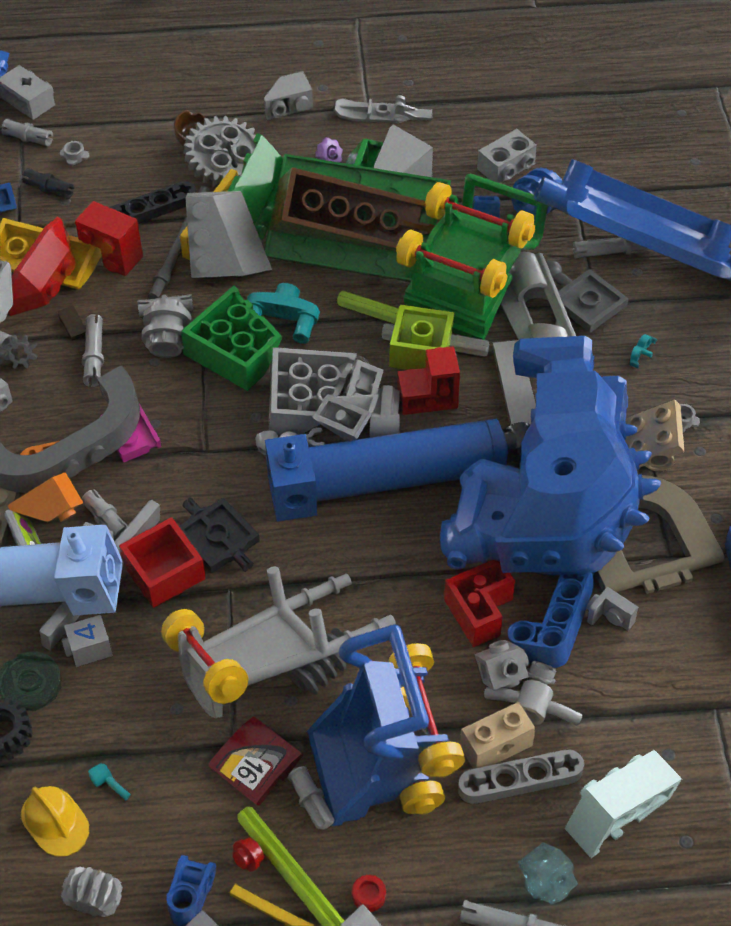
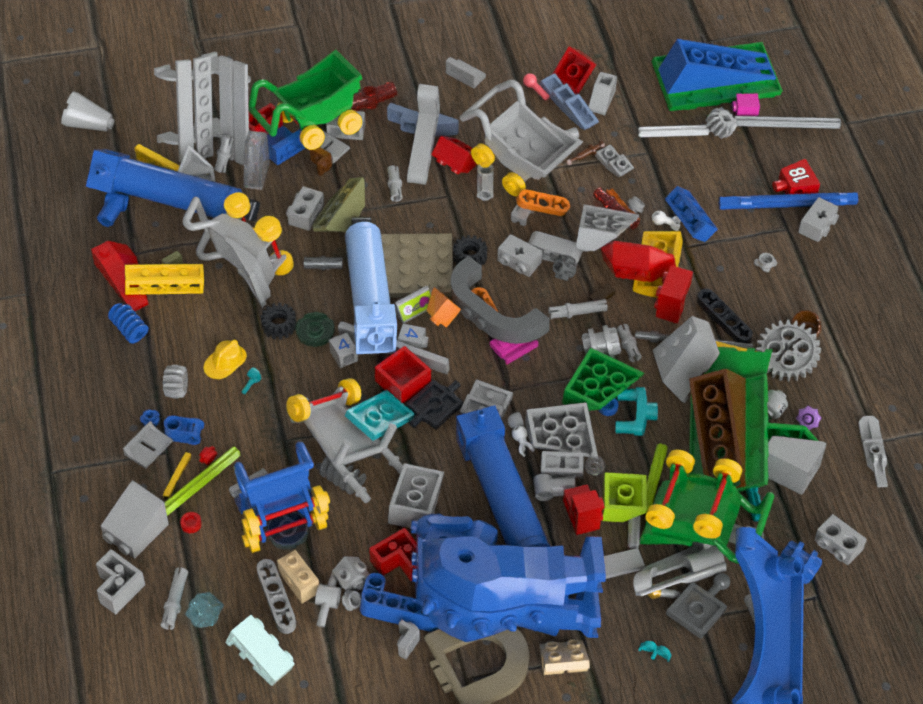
camera: 80 degrees right, 0 degrees up
(27, 132) = (778, 230): light grey pin -> none
(48, 183) = (730, 253): black pin -> none
(103, 512) = (442, 342): light grey pin -> none
(226, 474) = (486, 395): none -> light grey slope
(230, 599) = (378, 413): none -> teal plate
(255, 760) = (271, 450): slope -> none
(288, 96) = (866, 382): light grey slope -> none
(346, 414) = (532, 452): light grey slope -> none
(382, 570) = (414, 495): none -> light grey slope
(487, 204) = (783, 532): blue slope -> none
(688, 417) = (592, 675): light grey plate -> none

